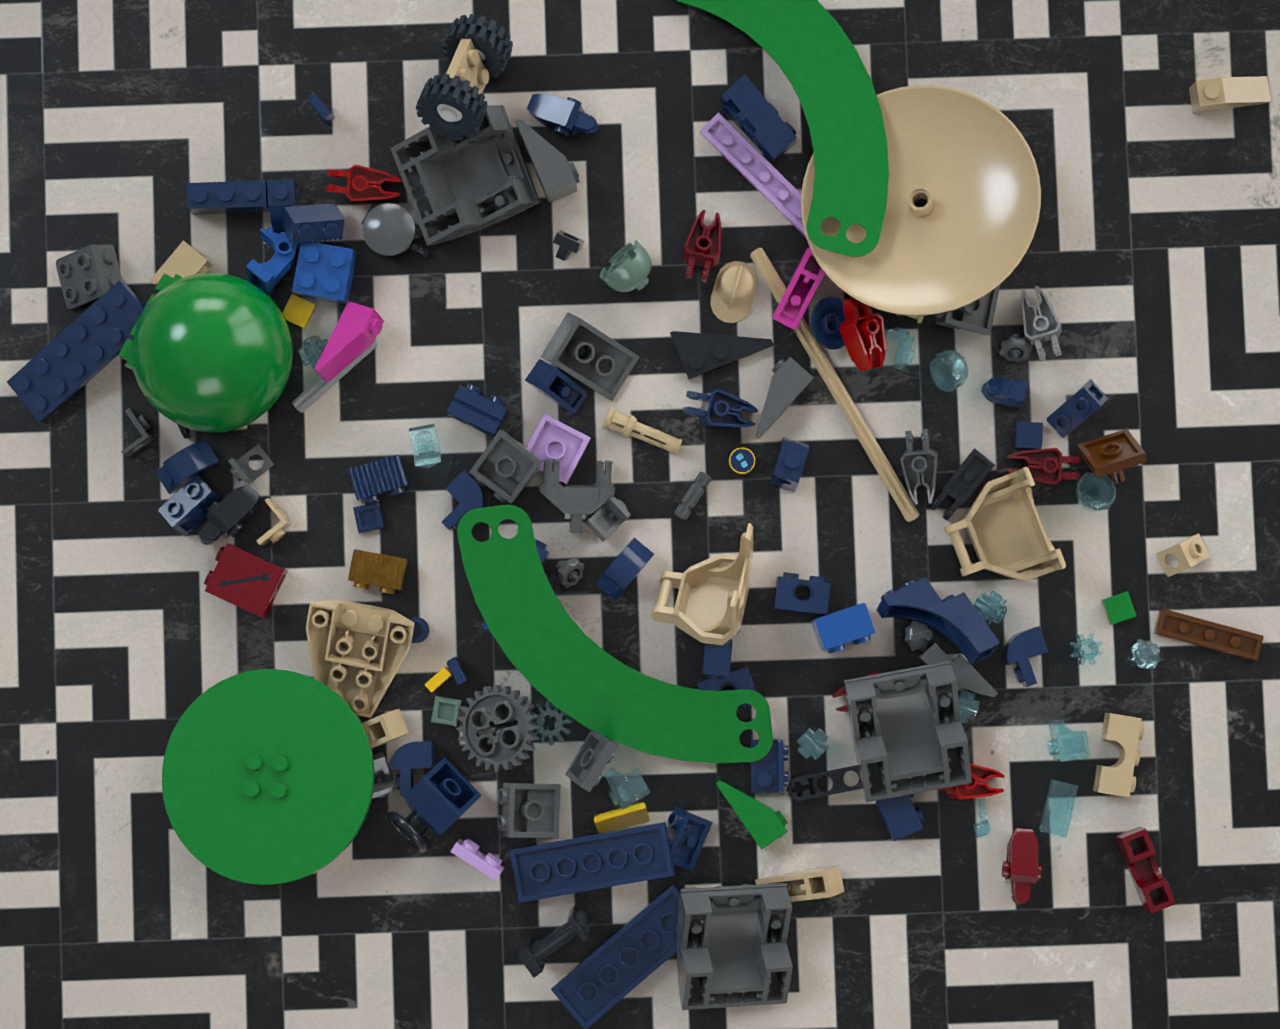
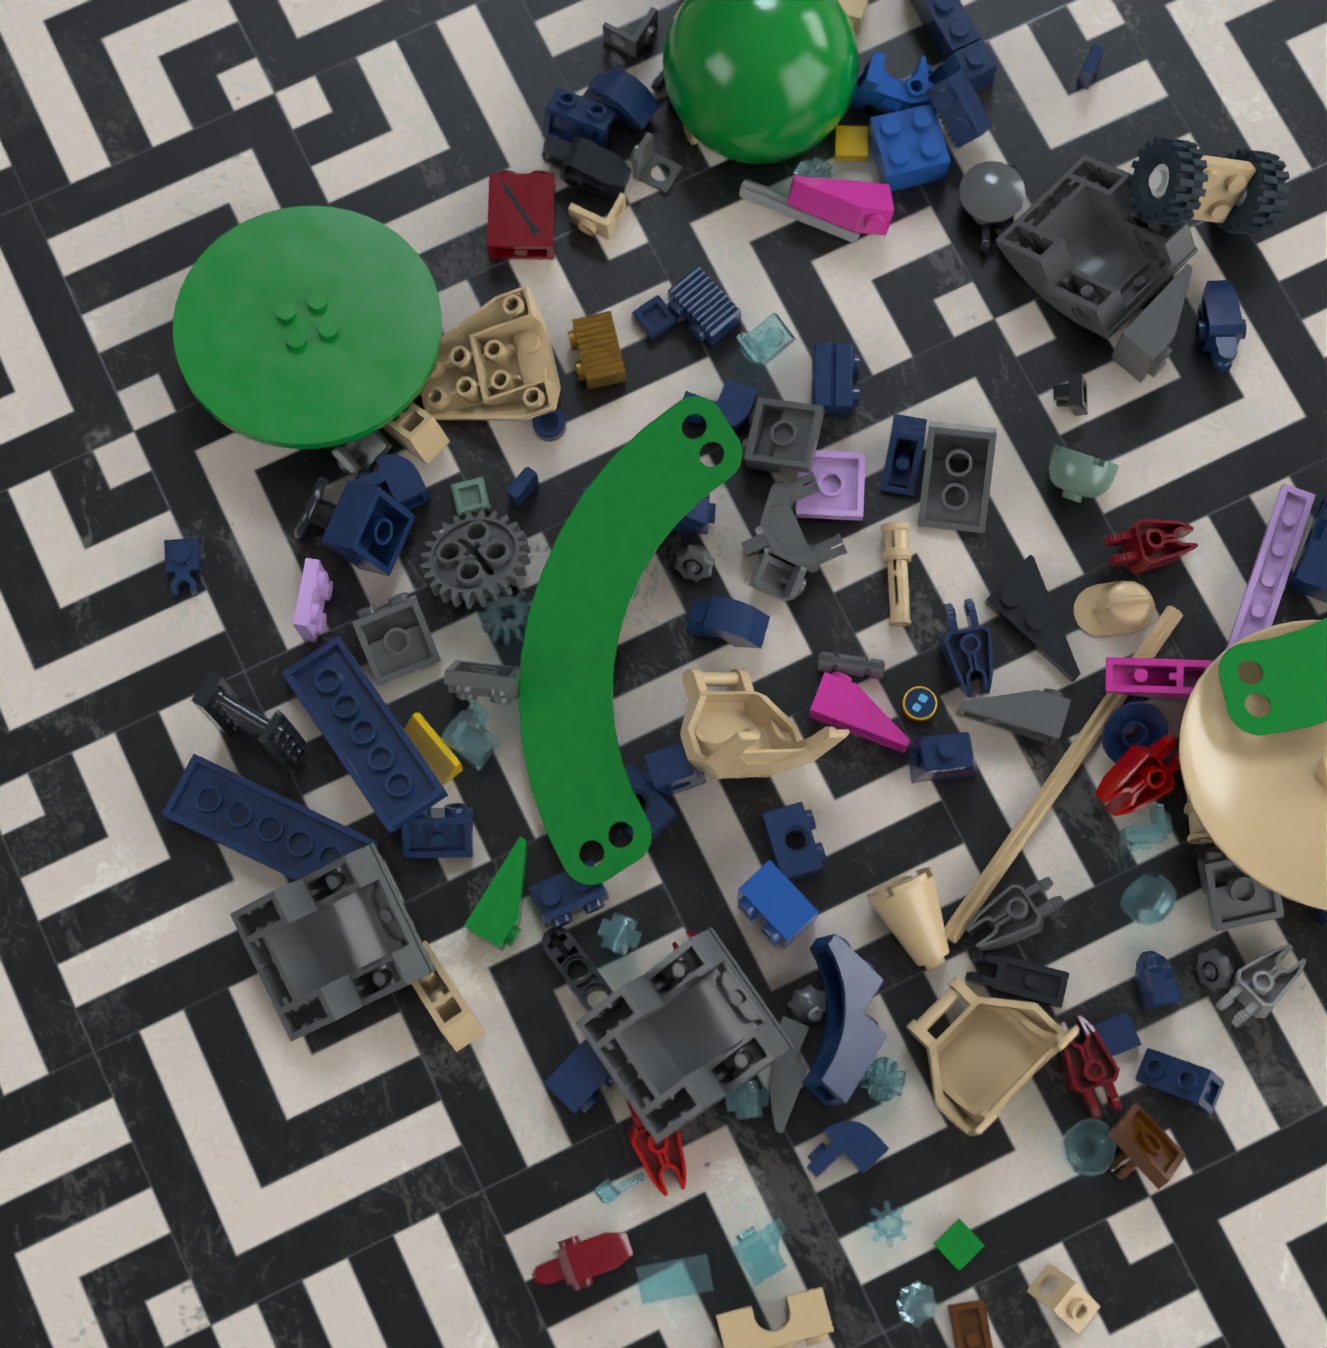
camera: 70 degrees right, 10 degrees down
(358, 183) = (1029, 144): red hinge -> none
(399, 939) = (183, 560): none -> dark blue plate
(437, 680) = (501, 469): yellow tile -> none
(726, 510) = (849, 707): none -> dark pink slope
(889, 535) = (914, 916): none -> tan cone

